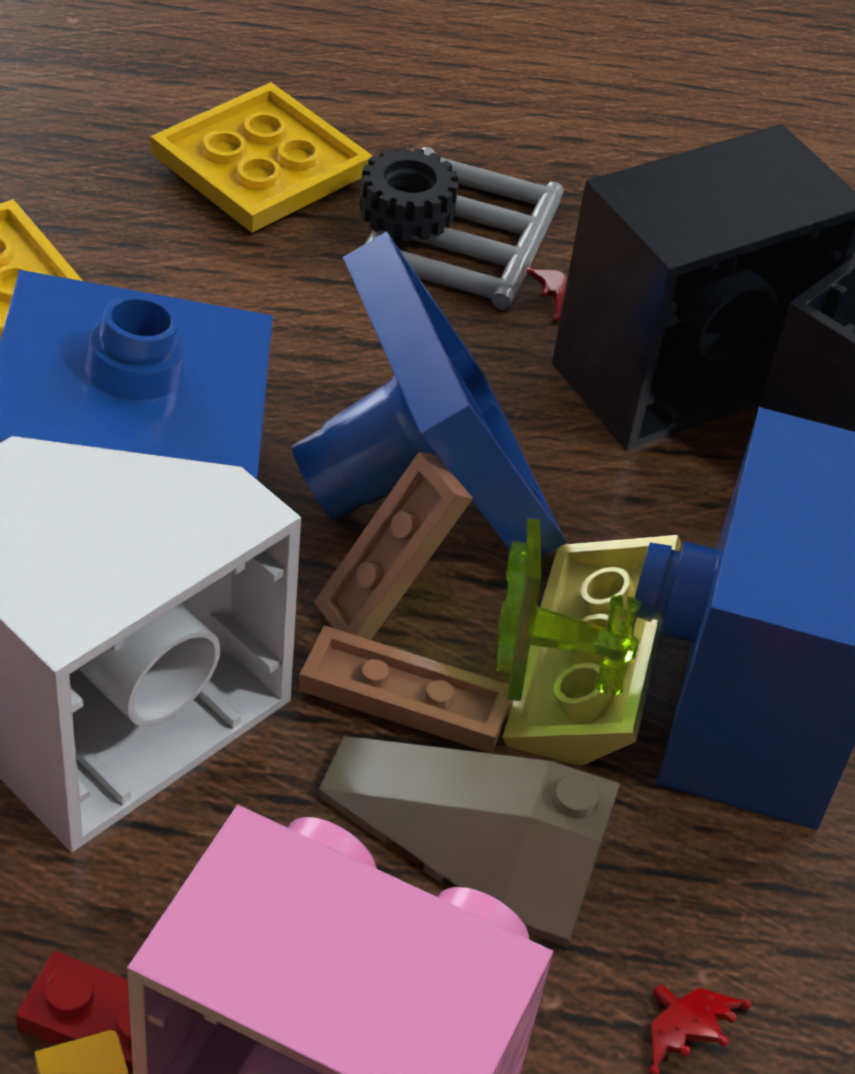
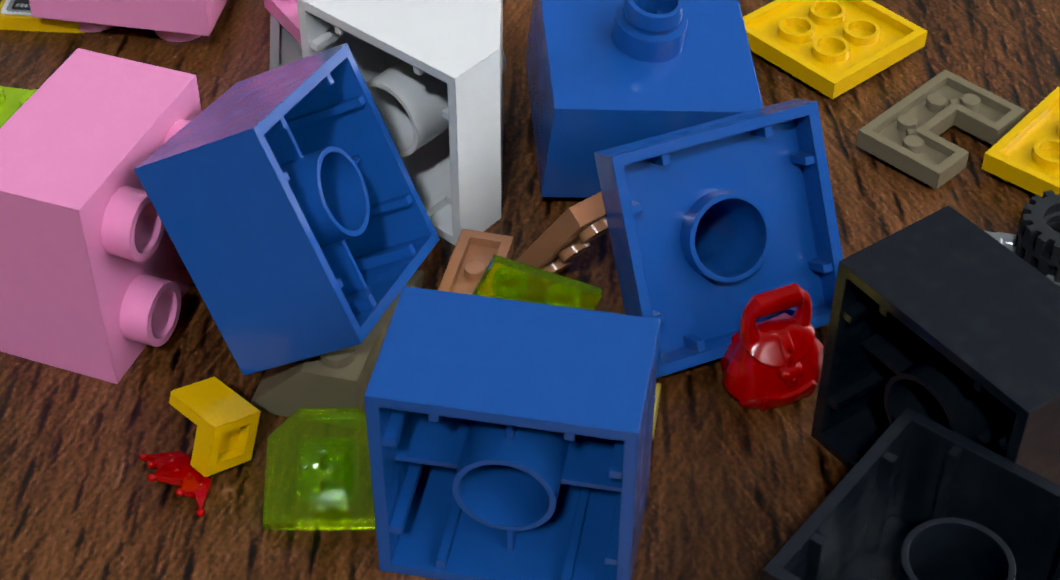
camera: 90 degrees right, 5 degrees down
(151, 232) = (911, 128): none -> dark tan plate
(422, 750) = (291, 210): none -> blue brick
(559, 435) = (775, 358): none -> red piece
(647, 950) = (223, 421): none -> yellow panel
(718, 847) = (319, 472): none -> clear neon green piece

